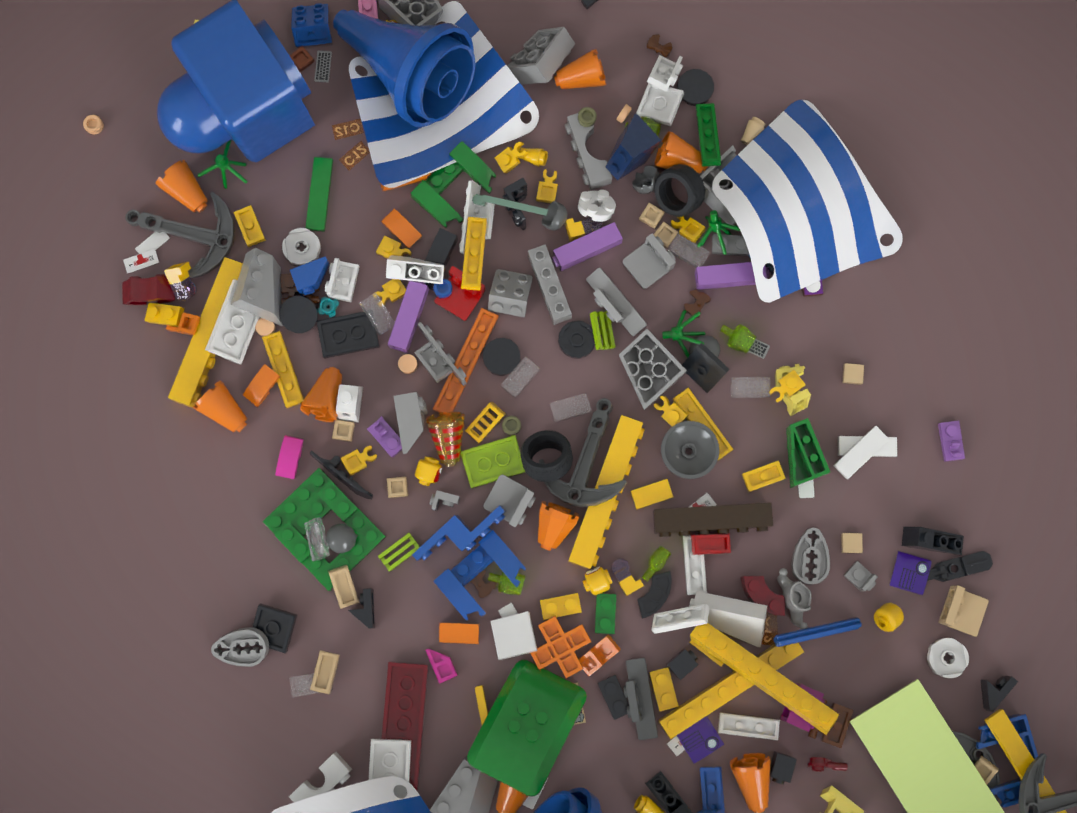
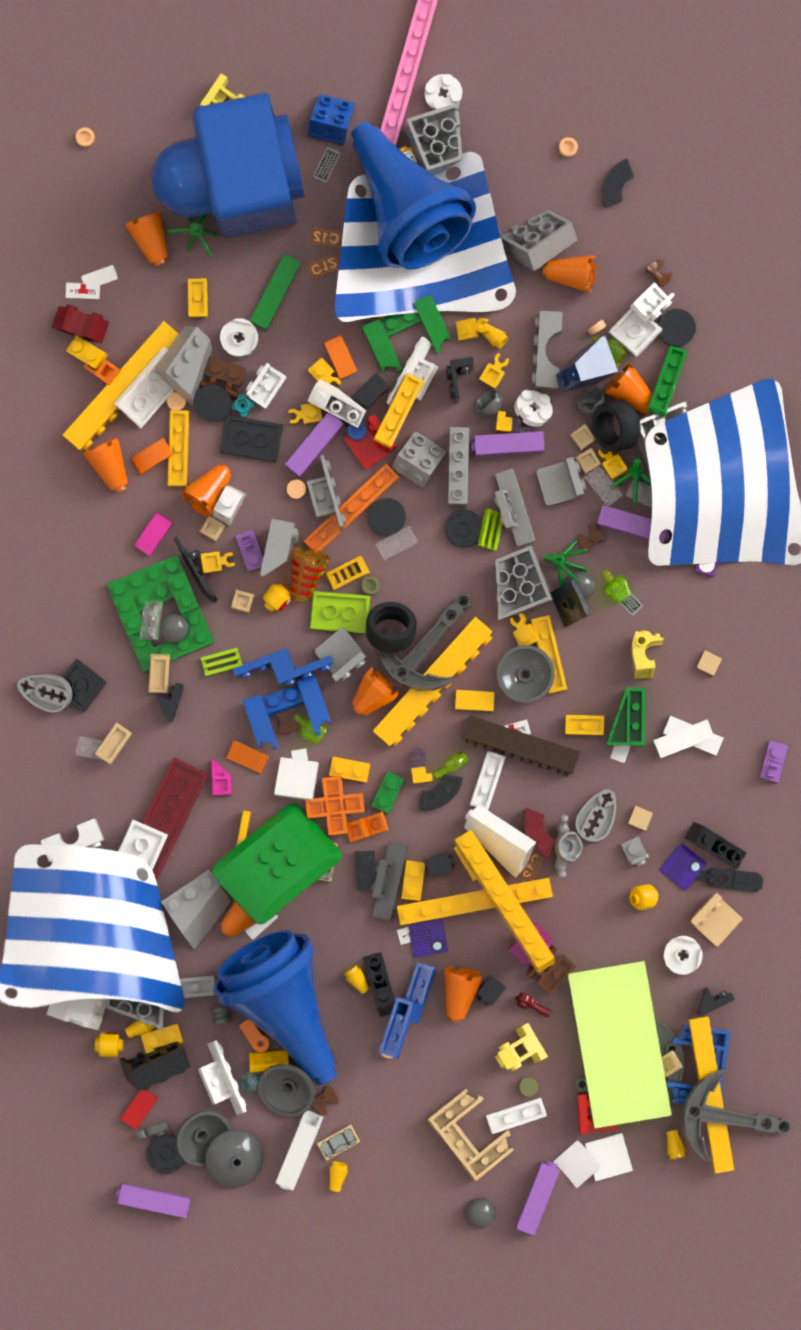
camera: 20 degrees right, 5 degrees up
(180, 281) = (114, 327): leg -> none
(205, 236) = (158, 296): dark grey piece -> none
(301, 58) = (308, 149): copper tile -> none
(310, 275) = (236, 371): blue slope -> none
(377, 313) = (286, 431): clear tile -> none
(448, 499) = (285, 631): light grey bracket -> none
(482, 199) = (428, 361): sand green piece -> none
(570, 407) = (432, 590): clear tile -> none
(587, 117) = (558, 319): olive tile -> none
(597, 581) = (392, 759): yellow head -> none
(680, 618) = (453, 822): white tile -> none
(710, 544) = (510, 767): red tile -> none
(748, 726) = (476, 943): white tile -> none
(750, 387) = (607, 637): clear plate -> none
(753, 129) = (713, 392): tan cone -> none
(788, 384) = (641, 650): yellow plate -> none
(817, 632) = (572, 884): blue axle -> none

